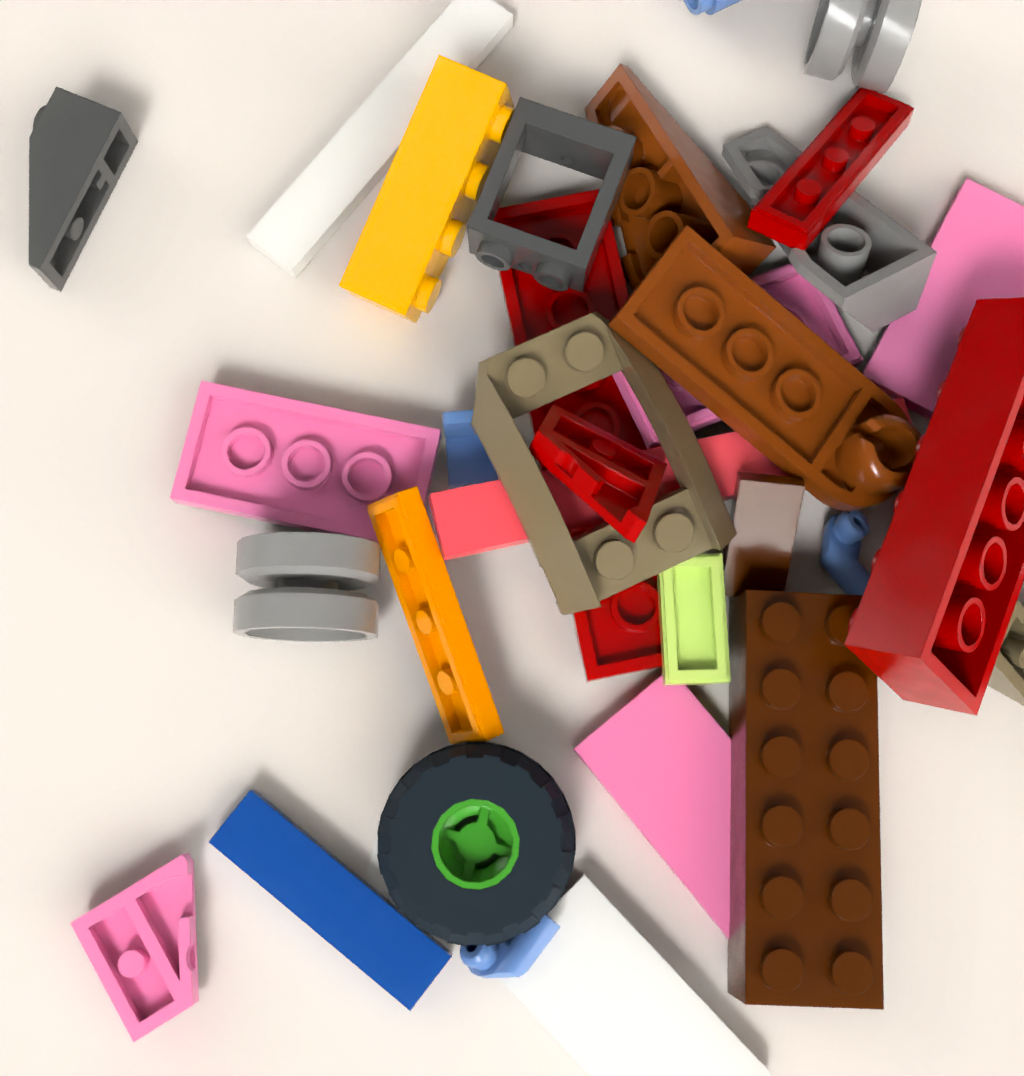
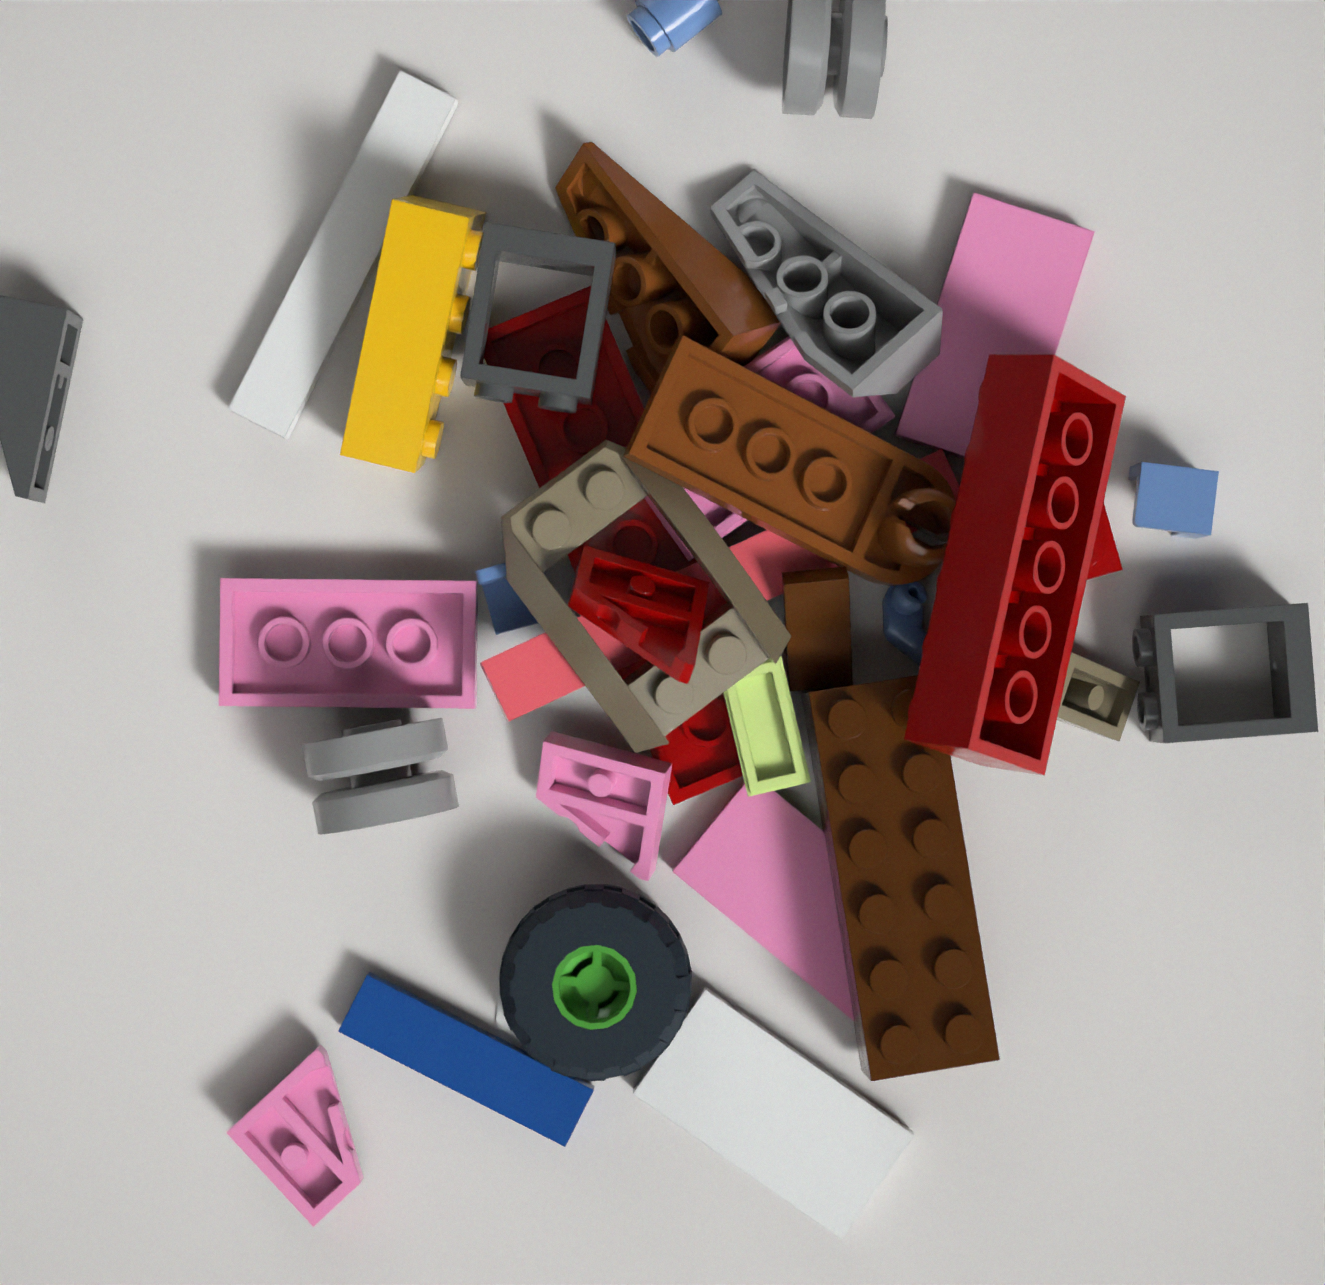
camera: 10 degrees left, 10 degrees up
(435, 617) = (509, 775): light orange tile -> none
(511, 957) = (652, 1079): medium blue arm -> none
(528, 660) = (607, 795): none -> bright pink wing
(830, 169) = (825, 223): red tile -> none

